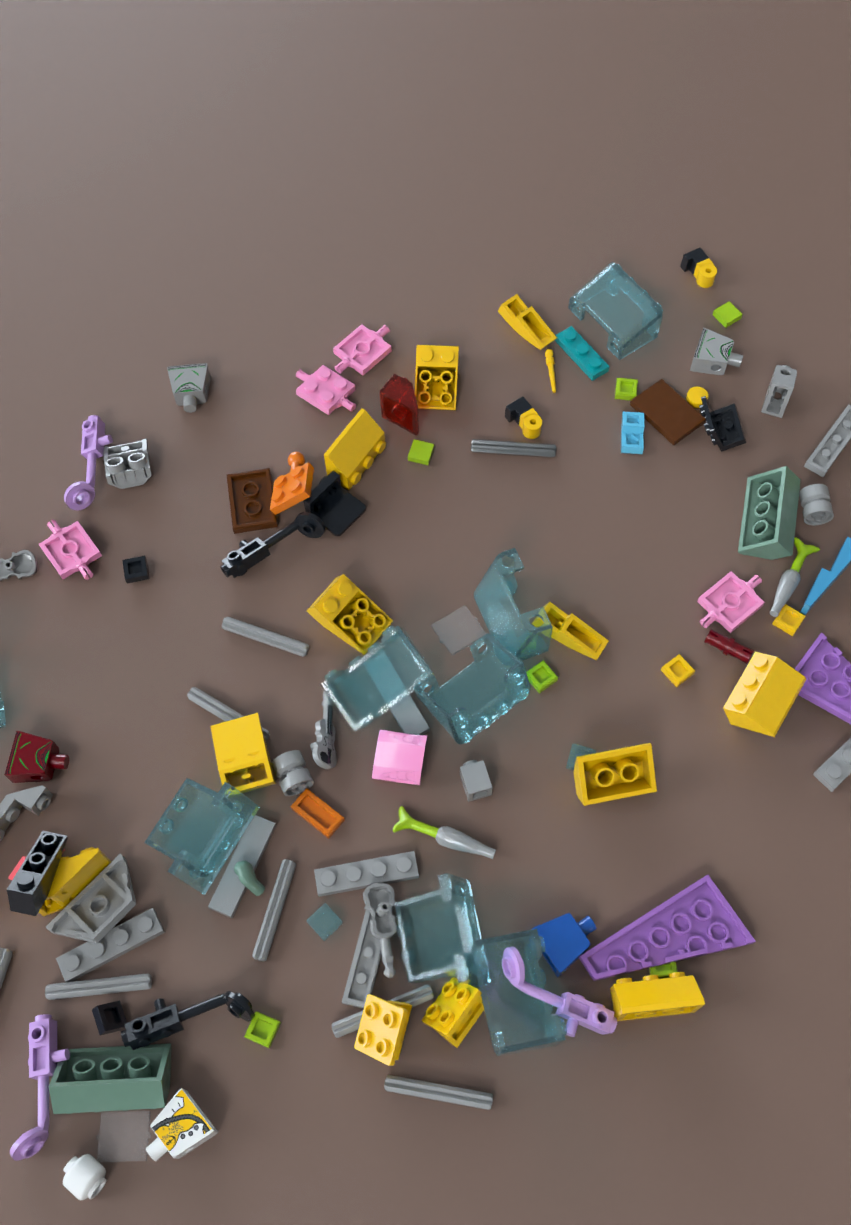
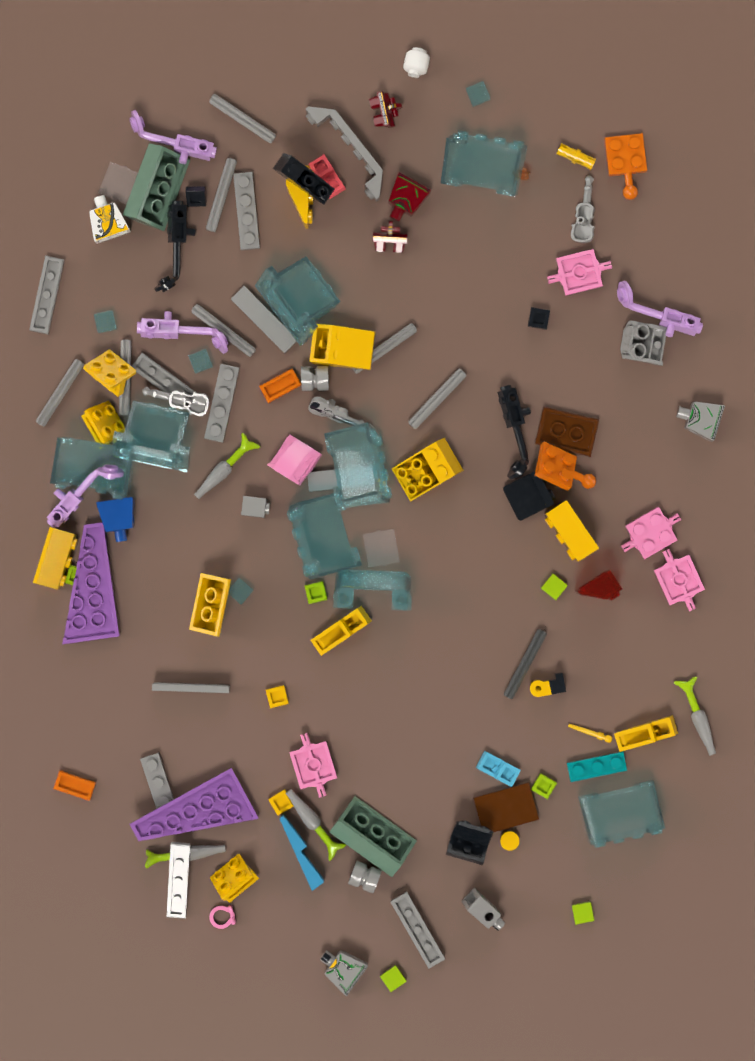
camera: 115 degrees right, 25 degrees up
(84, 1177) = (103, 151): white head -> none
(95, 766) = (381, 238): none -> dark red hips
(97, 905) = (275, 211): light grey wing -> none
(248, 878) = (251, 320): sand green arm -> none
(262, 1029) = (147, 294): lime tile -> none
(296, 975) = (170, 329): none -> lavender piece
(312, 1172) = (47, 295): none -> light grey tile
(319, 1071) = (105, 321): none -> clear light blue tile
(436, 377) = (621, 630): yellow slope -> none
(487, 290) = (698, 716): none -> light grey piece
(700, 266) = (640, 916): leg -> none
(714, 354) = (543, 876): light grey torso -> none
(721, 765) = (189, 687): none -> light grey tile
(728, 646) = (278, 744): dark red pin -> none
(764, 694) = (226, 745): yellow slope -> none

